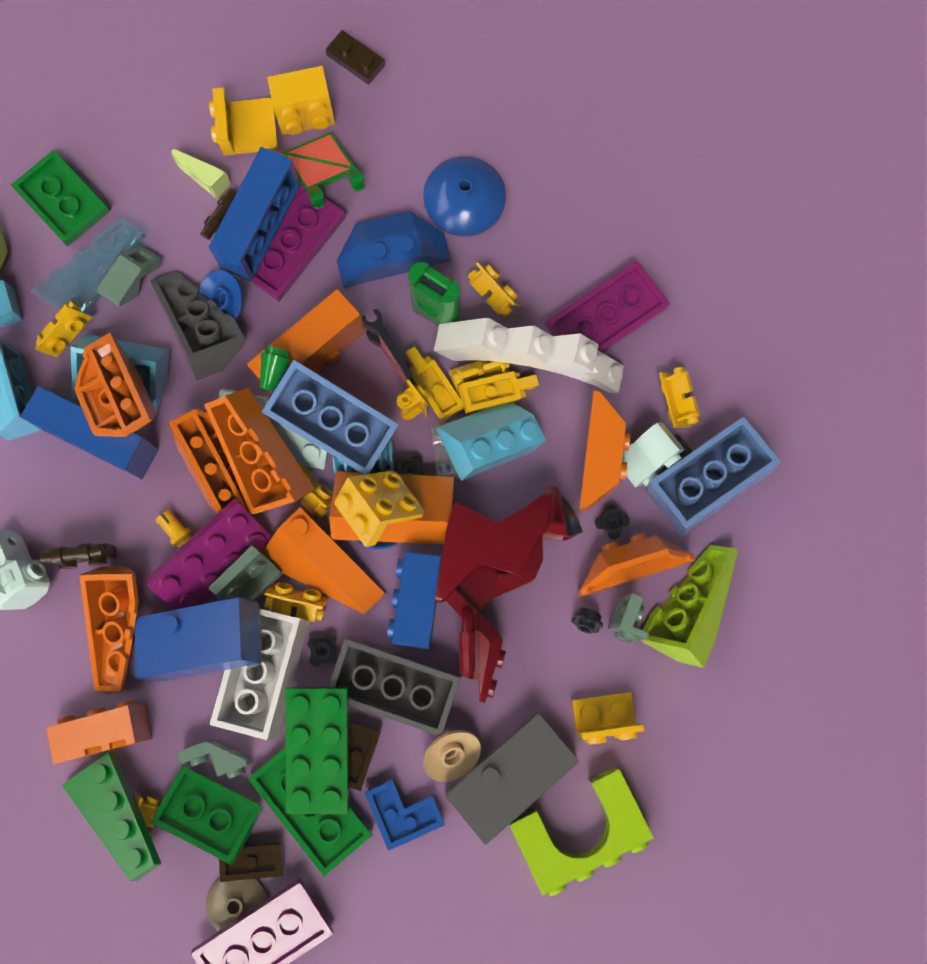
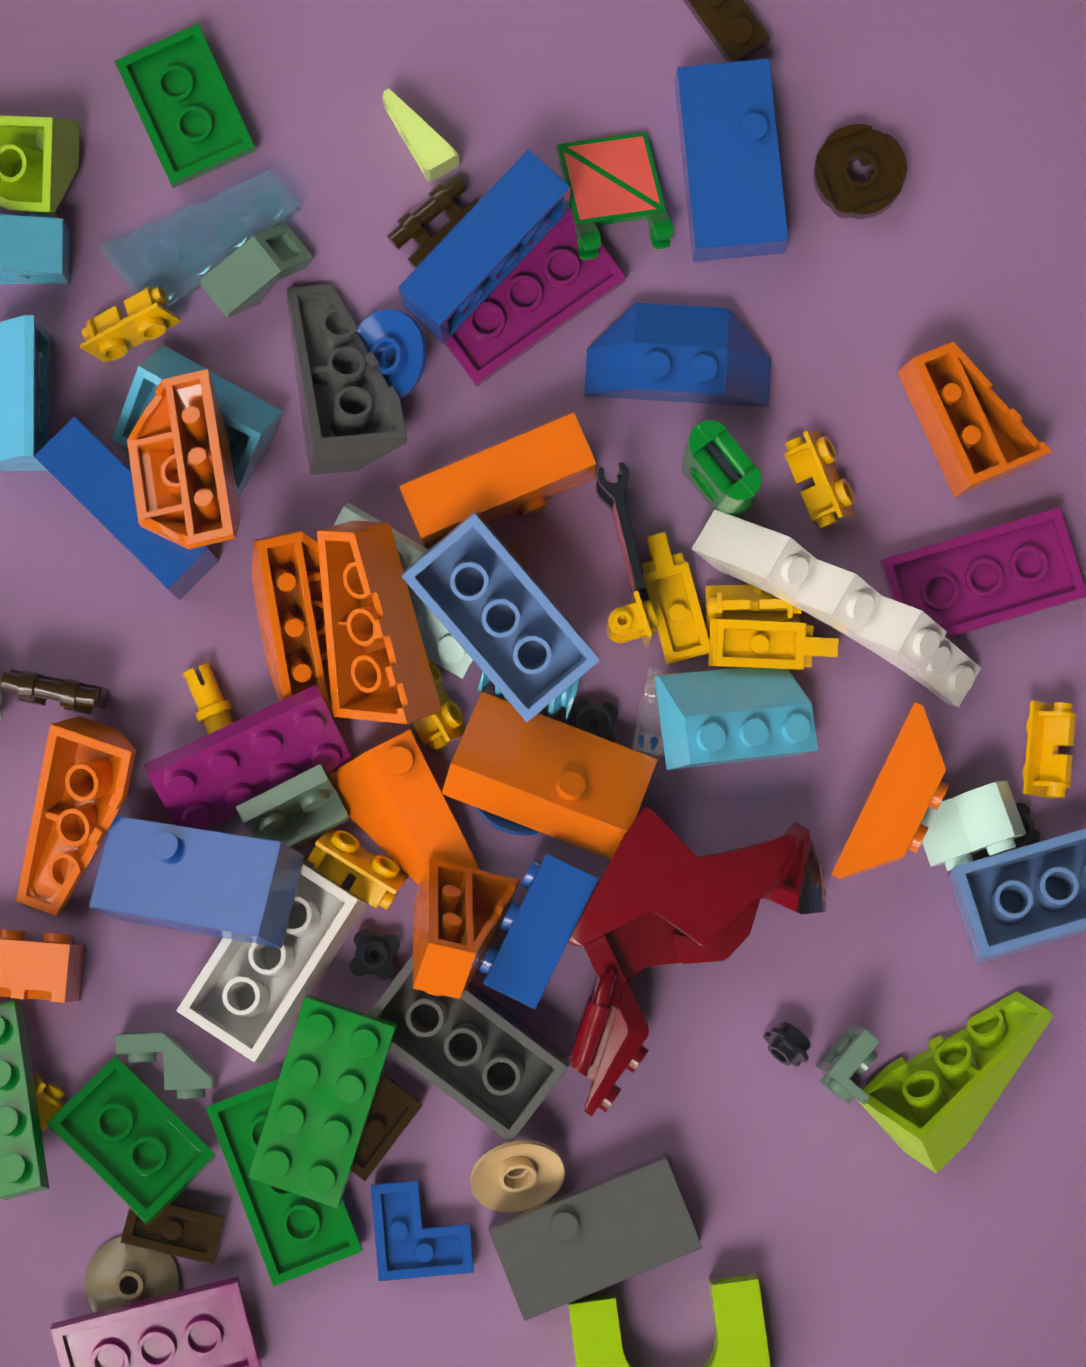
camera: 20 degrees right, 5 degrees up
(243, 124) = (511, 77): yellow bracket -> none
(273, 367) = (438, 509): green cone -> none
(301, 100) = (615, 74): yellow brick -> none
(364, 614) = (455, 924): none -> orange wedge
(374, 501) = (528, 769): yellow bracket -> none
(384, 129) = (731, 160): none -> blue brick
(459, 130) = (872, 148): none -> dark brown plate
(459, 210) = (820, 338): blue dish -> none
(567, 229) = (967, 421): none -> orange wedge
(605, 717) = (764, 1196): yellow bracket -> none
(620, 521) = (881, 893): black plate -> none
(631, 562) = (885, 979): orange wedge -> none

